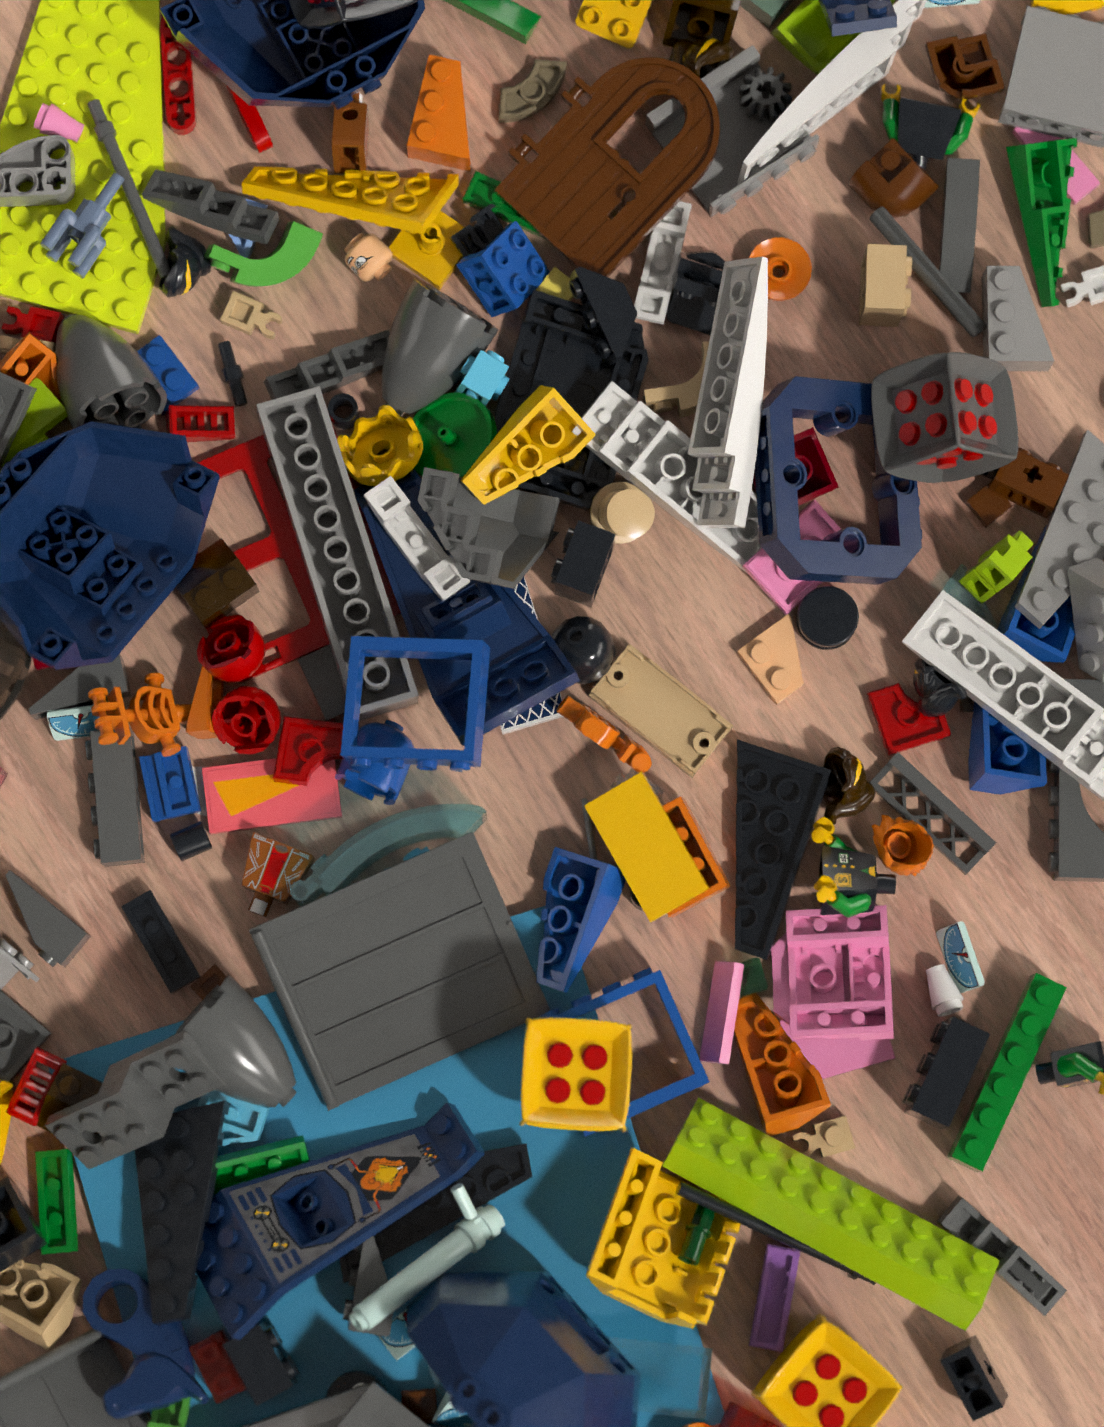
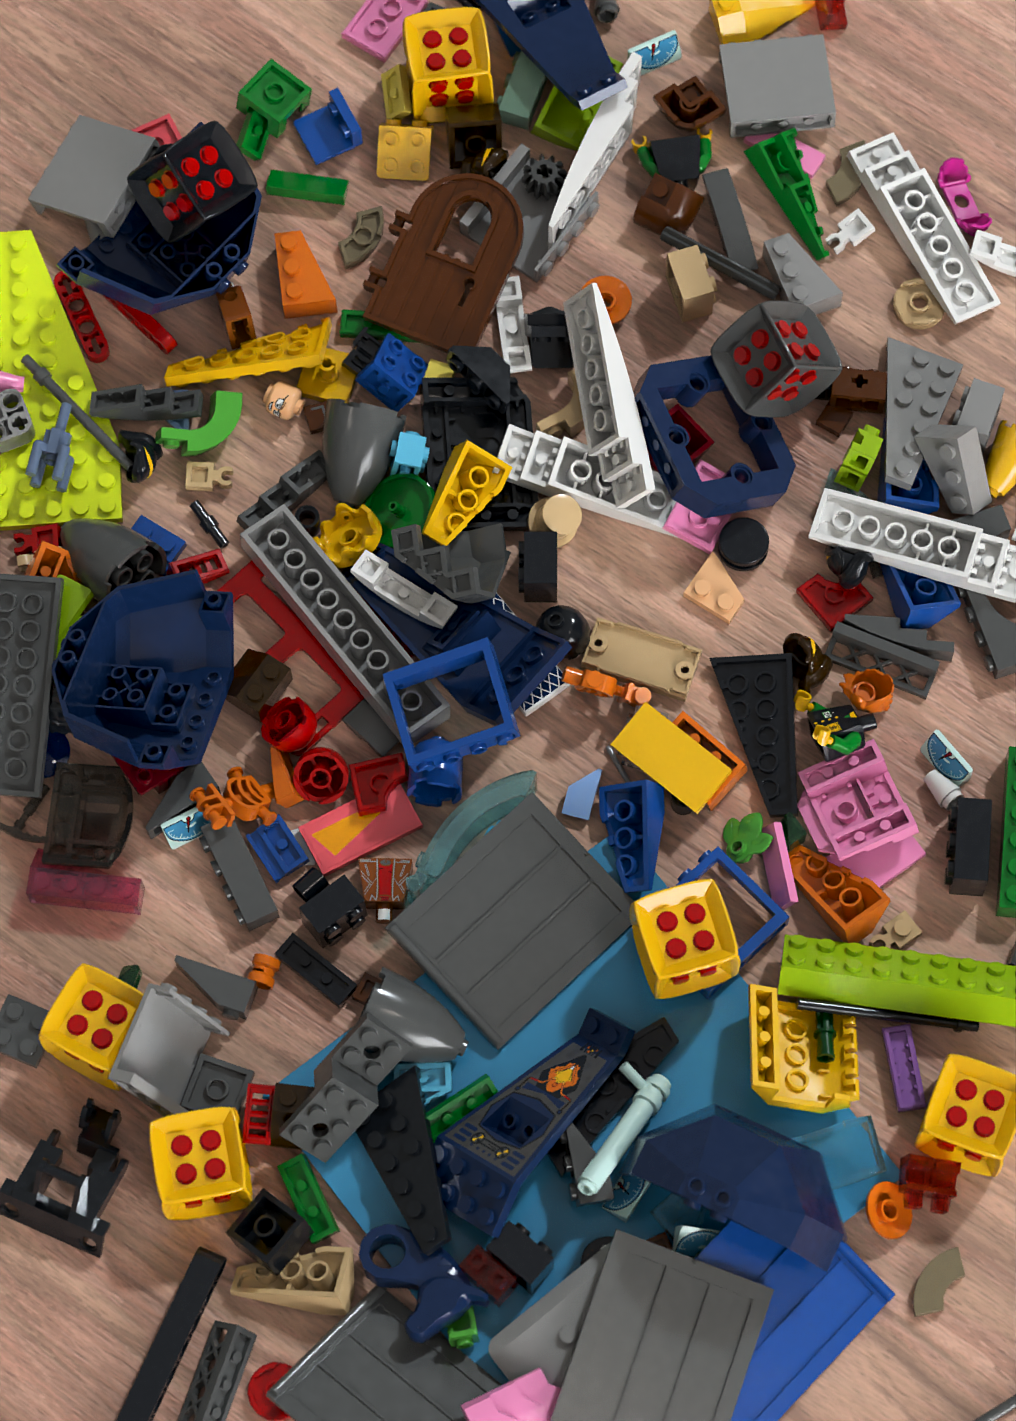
camera: 15 degrees left, 10 degrees down
(101, 922) = (264, 970): none -> orange wheel
(202, 885) = (333, 912): none -> black brick
(397, 287) = (315, 416): none -> reddish brown tile
(532, 848) = (581, 796): none -> light blue slope
(702, 963) = (746, 835): none -> bright green plate
(952, 784) = (912, 639): none -> dark grey slope

